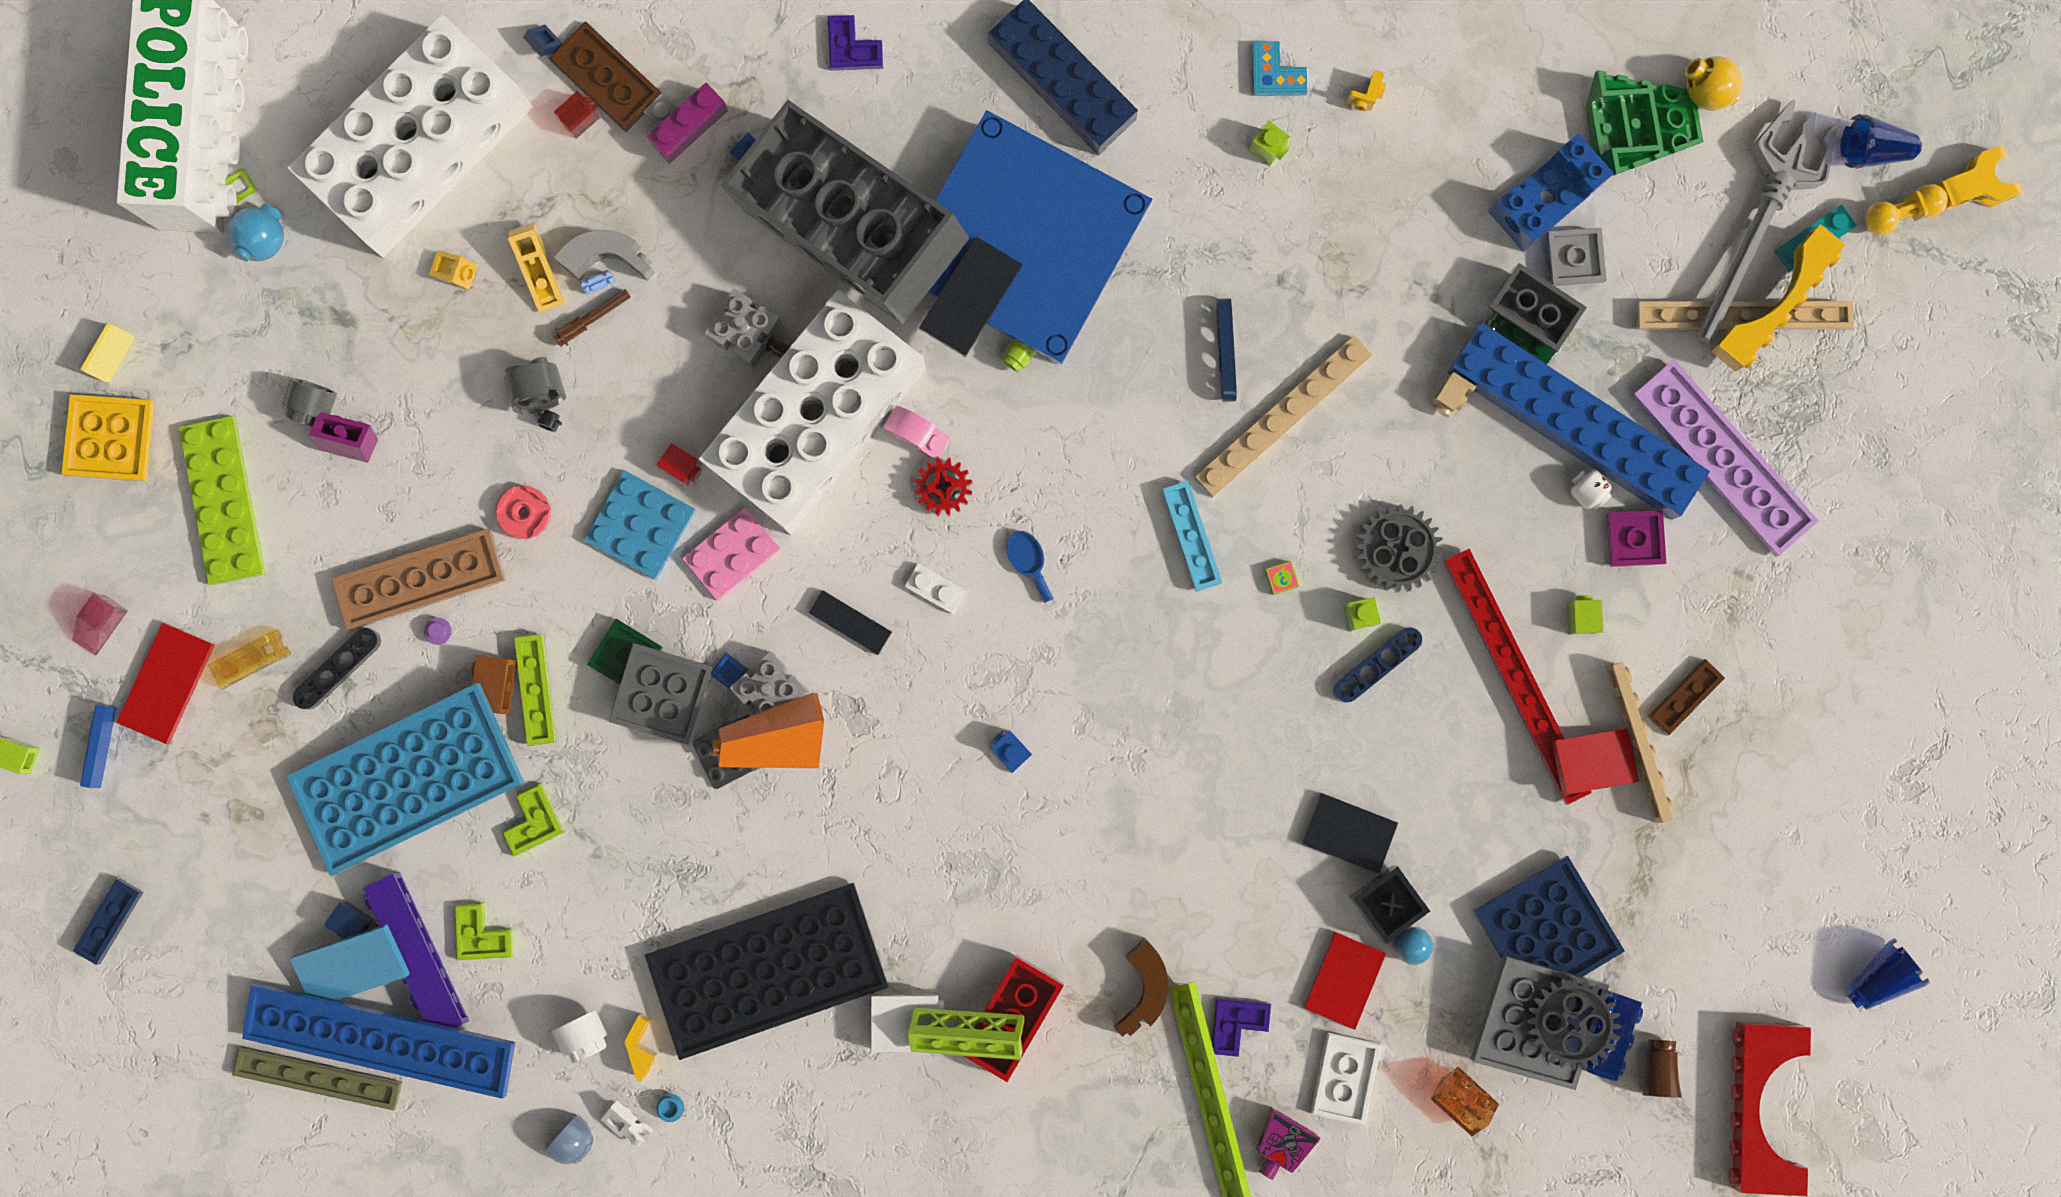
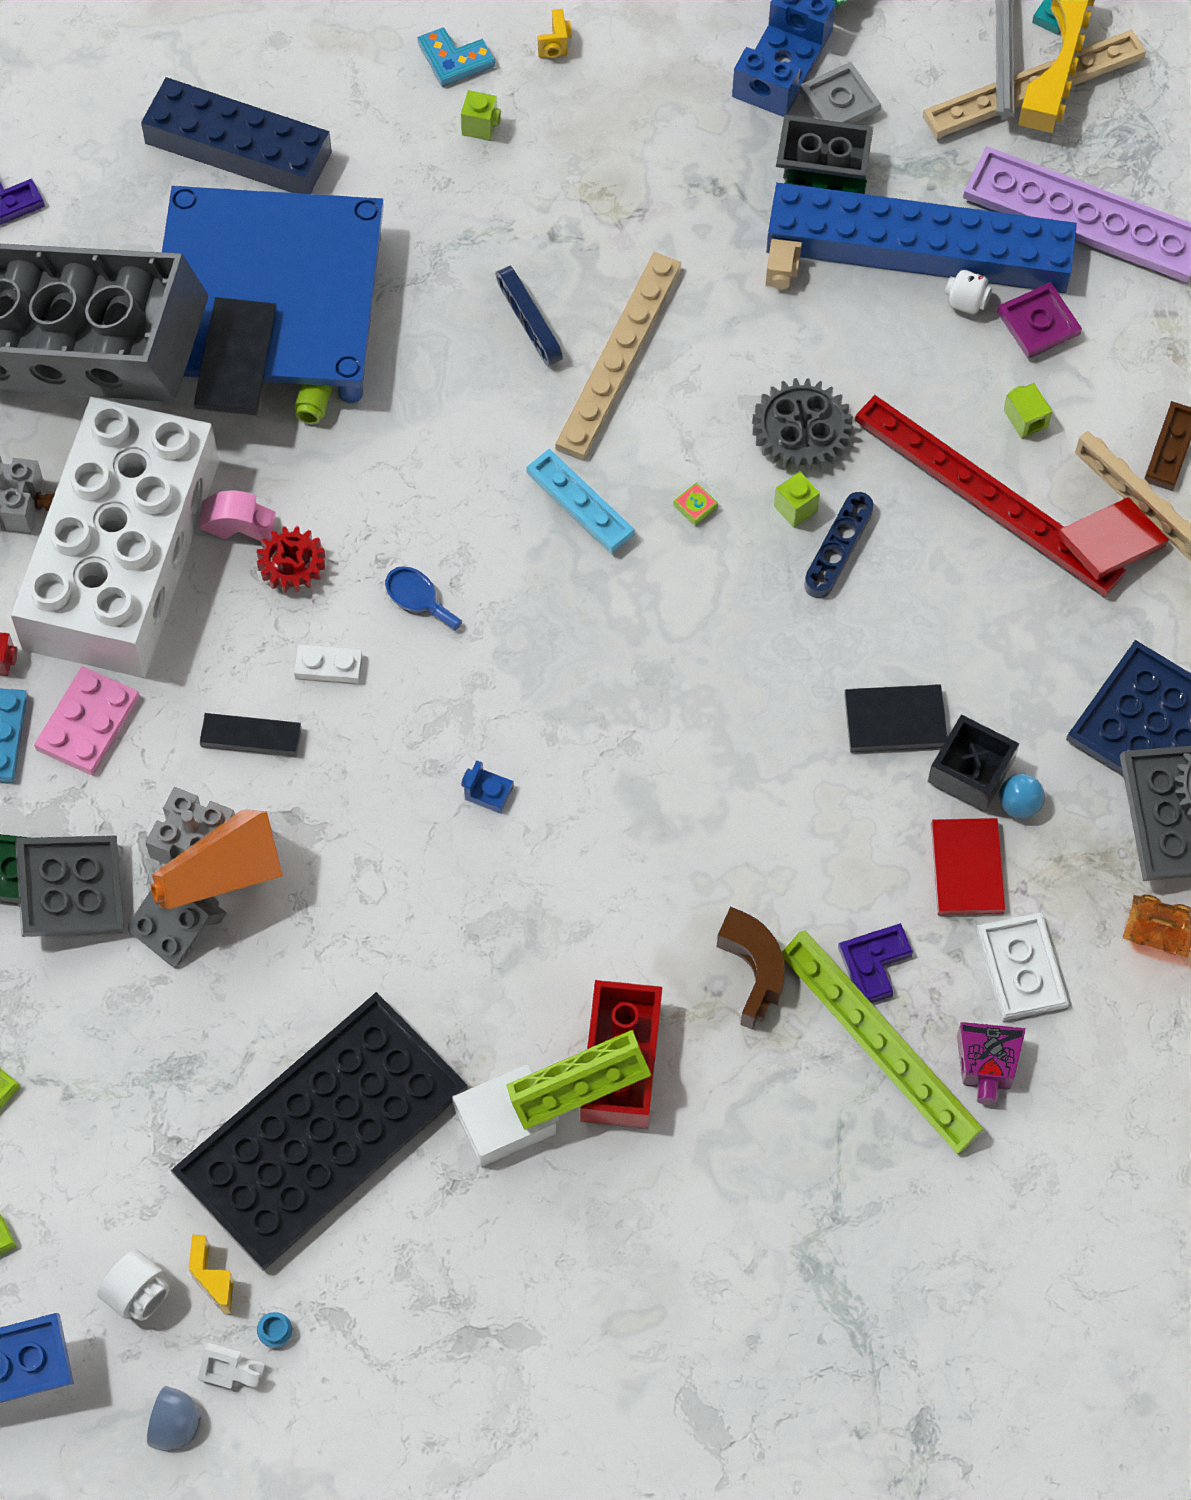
camera: 20 degrees left, 20 degrees down
(728, 671) = (133, 839): blue tile -> none

